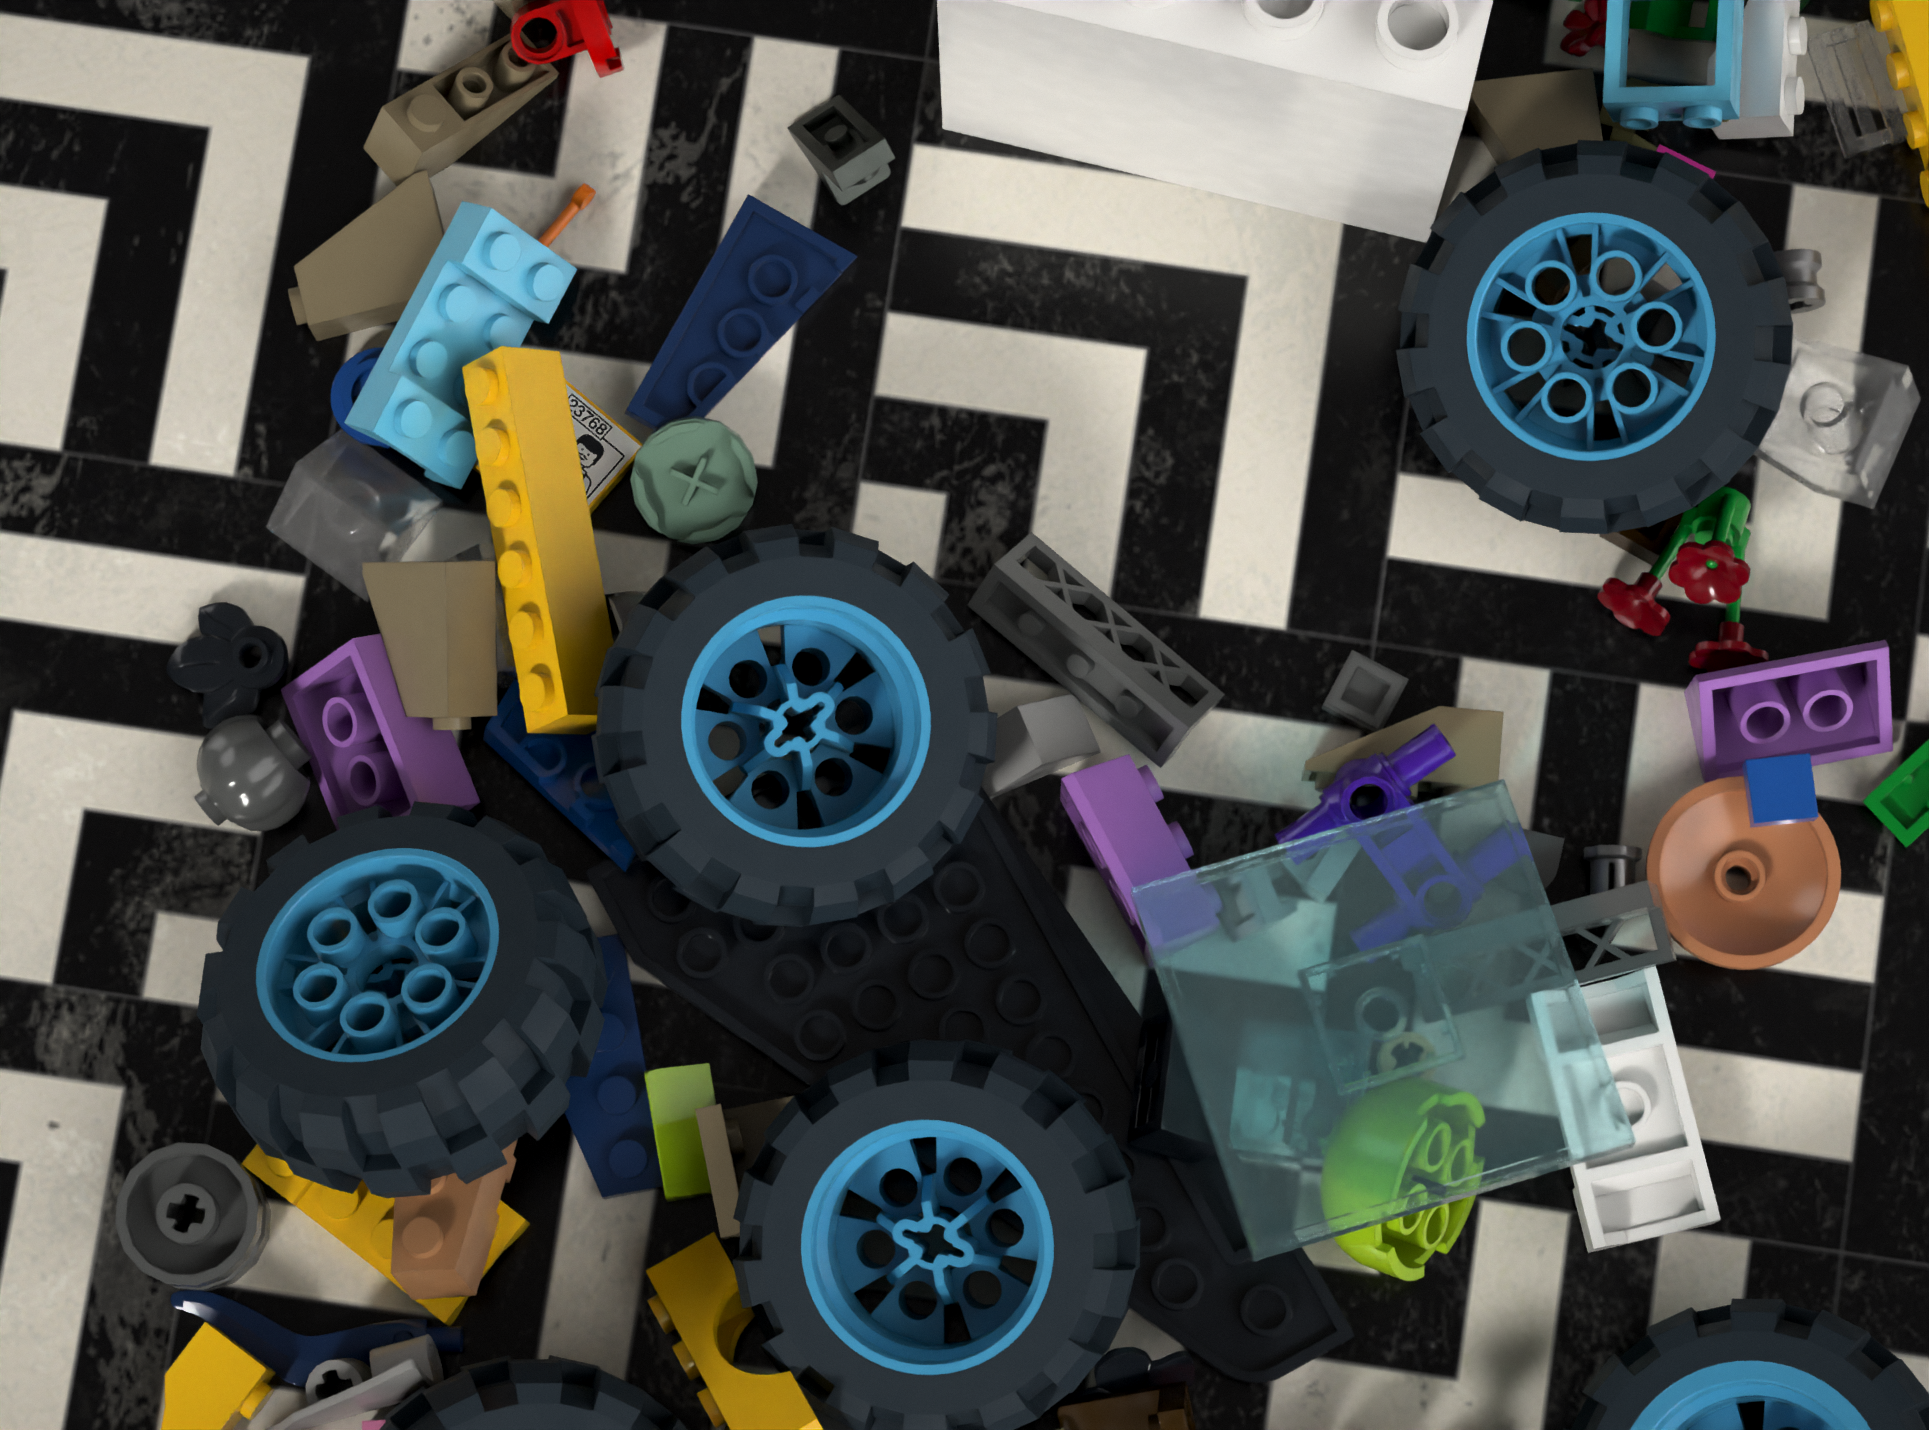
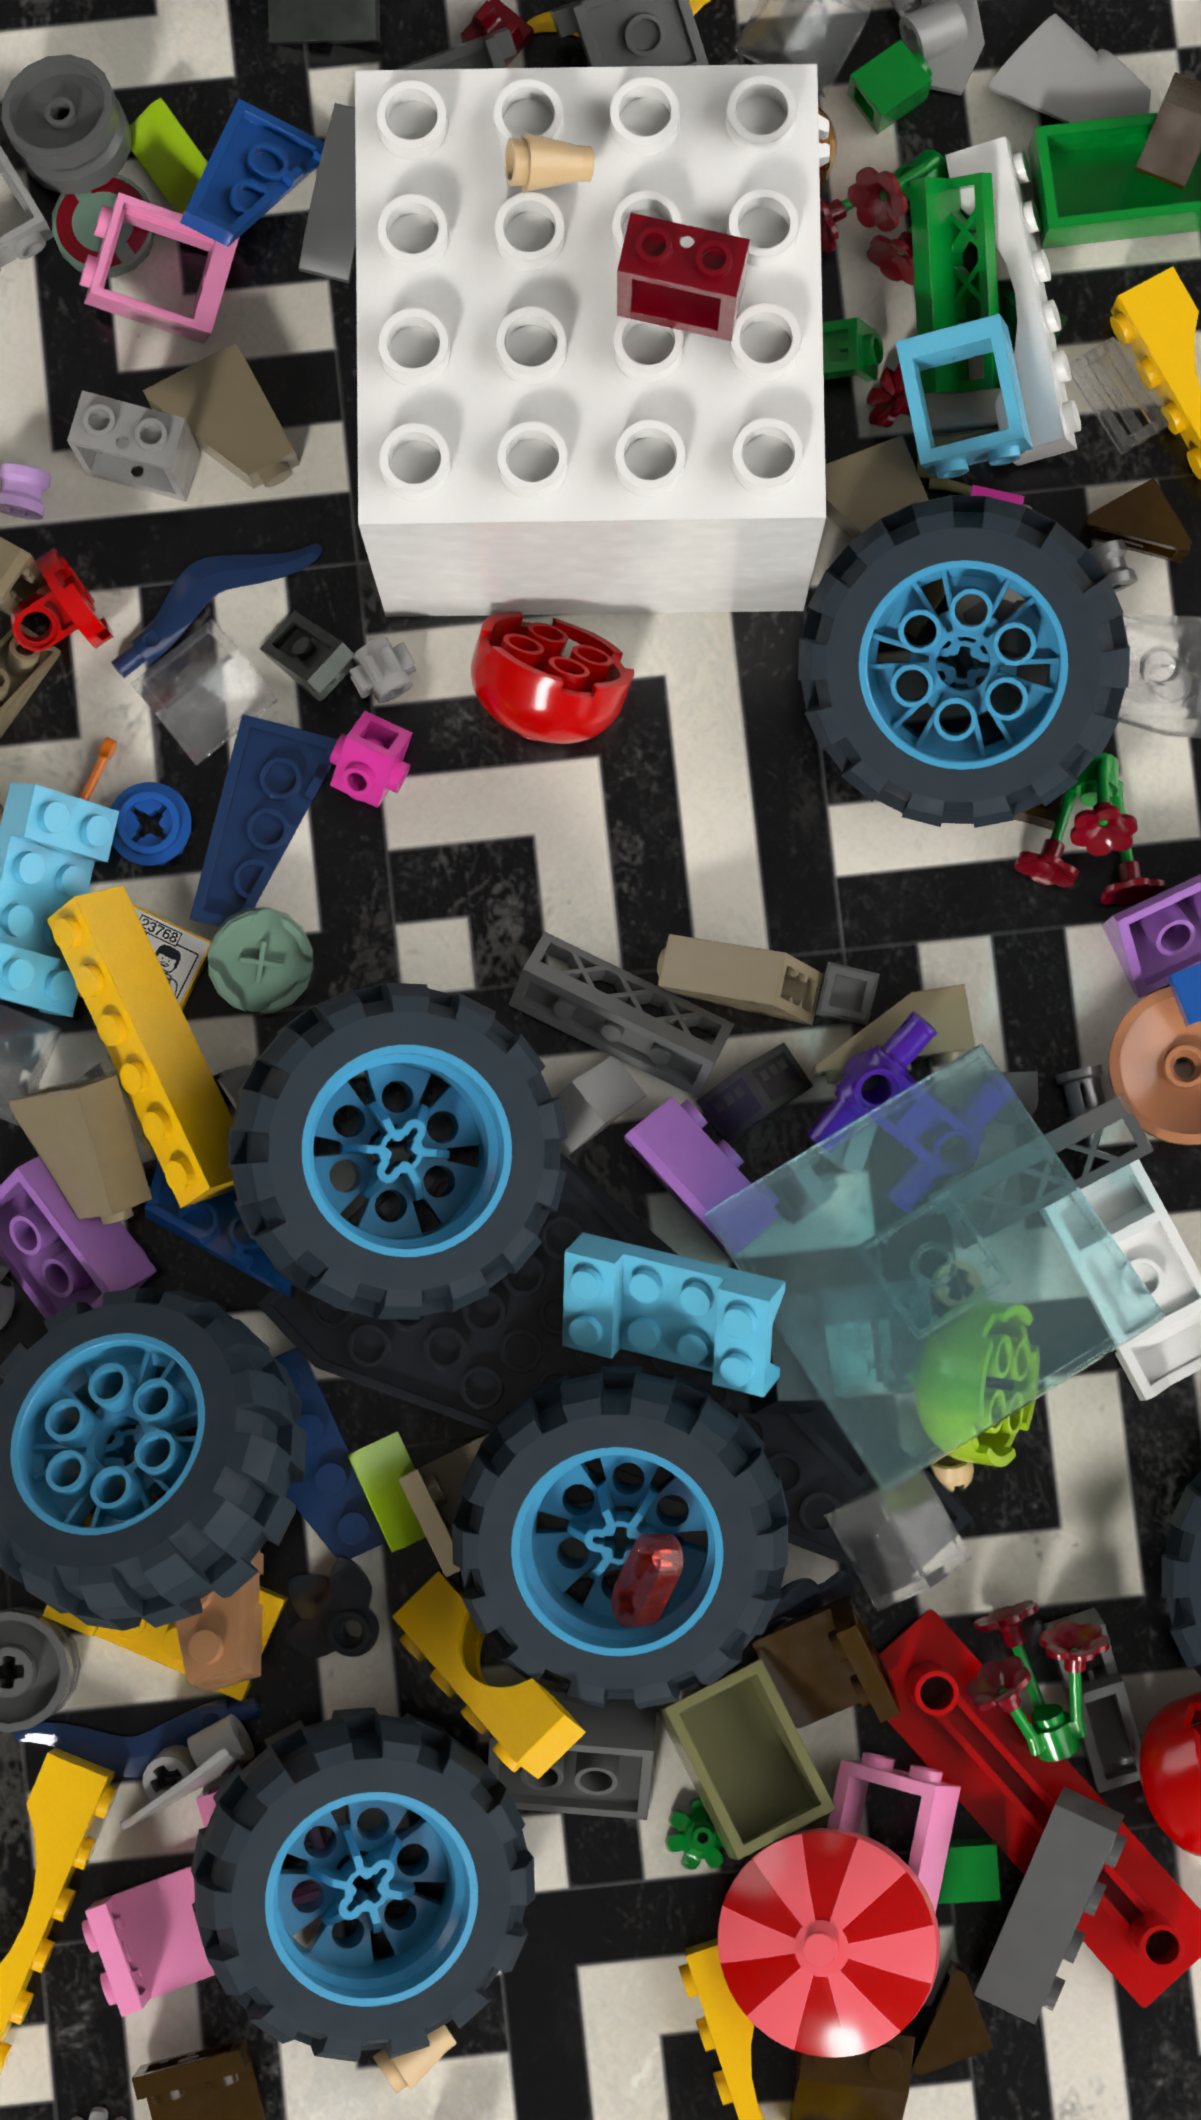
camera: 15 degrees left, 5 degrees up
(572, 1244) = (326, 1606): none -> black plate
(614, 266) = (151, 799): none -> blue gear
(710, 159) = (204, 691): none -> clear slope
(732, 42) = (196, 588): none -> dark blue piece
(882, 283) = (371, 759): none -> dark pink brick
(922, 185) = (382, 670): none -> light grey gear
(953, 1291) = (647, 1580): none -> clear red beam
(1062, 993) = (671, 1311): none -> medium azure piece
(1097, 254) = (539, 692): none -> red cylinder
(1226, 778) = (754, 1093): none -> slope
(1245, 641) = (740, 978): none -> dark tan slope
(1261, 1333) = (898, 1540): none -> clear slope
(1344, 1275) = (952, 1473): none -> tan hinge
(1848, 236) = (1143, 522): none -> dark brown slope

